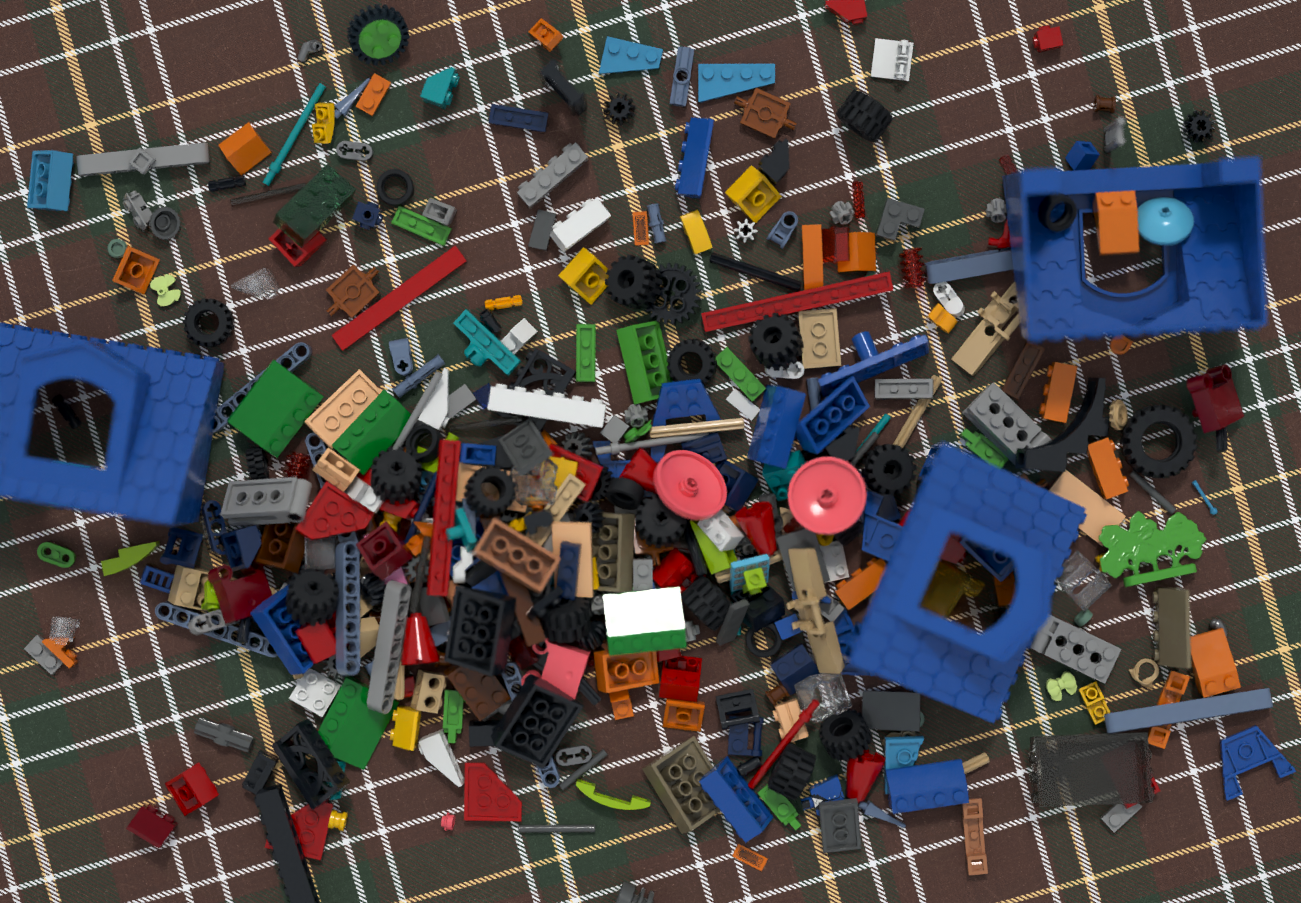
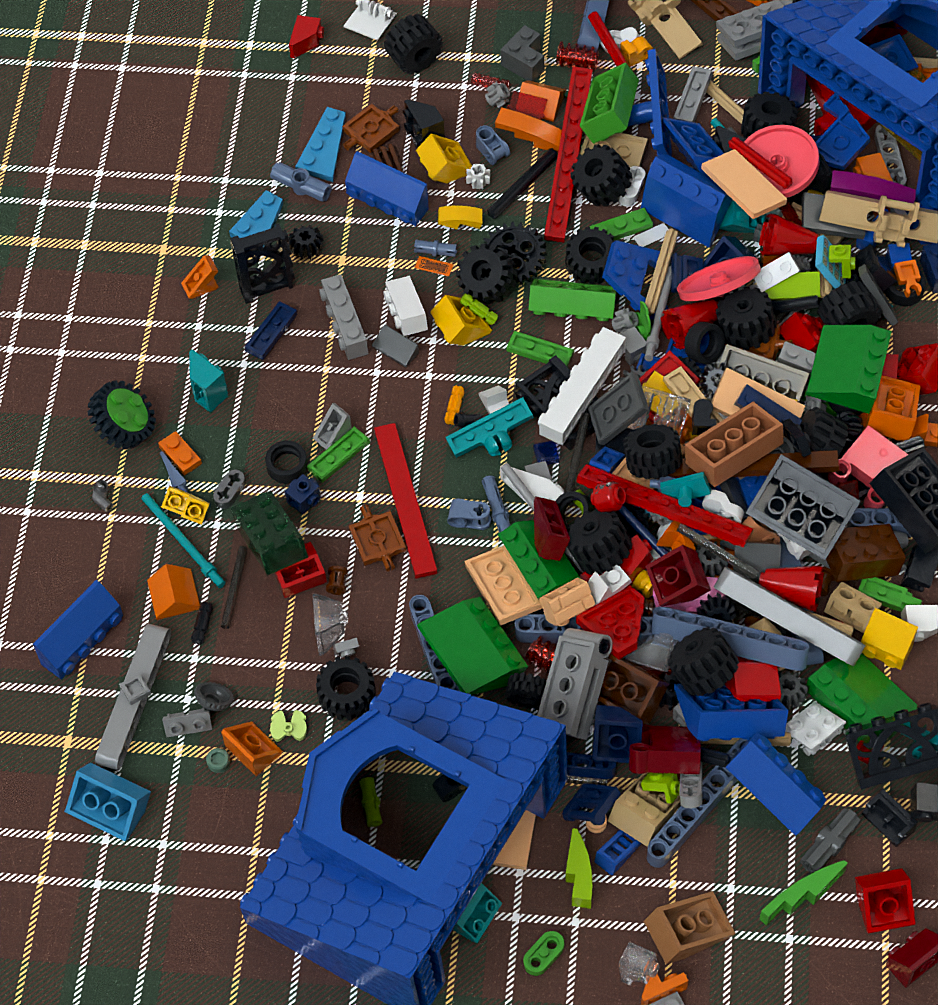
camera: 70 degrees left, 30 degrees down
(116, 653) = (688, 926): none -> medium nougat slope
(176, 92) = (78, 630): none -> blue slope
(180, 732) = (810, 888): none -> bright green slope
(240, 309) = (346, 648): none -> light grey plate
(242, 682) = (776, 783): none -> blue slope
(302, 275) = (336, 580): none -> reddish brown bush
(393, 432) = (549, 529): none -> dark red slope
(427, 472) = (608, 497): none -> red head
(601, 298) = (479, 309): none -> lime axle
(731, 136) = (383, 151): none -> reddish brown tile
(766, 639) = (908, 274): none -> orange plate
(788, 475) = (744, 184): none -> light nougat tile
(817, 482) = (761, 163): none -> red axle
(842, 584) = (870, 187): none -> magenta slope
(856, 320) = (609, 103): none -> bright green brick
(932, 295) = (606, 38): none -> red axle

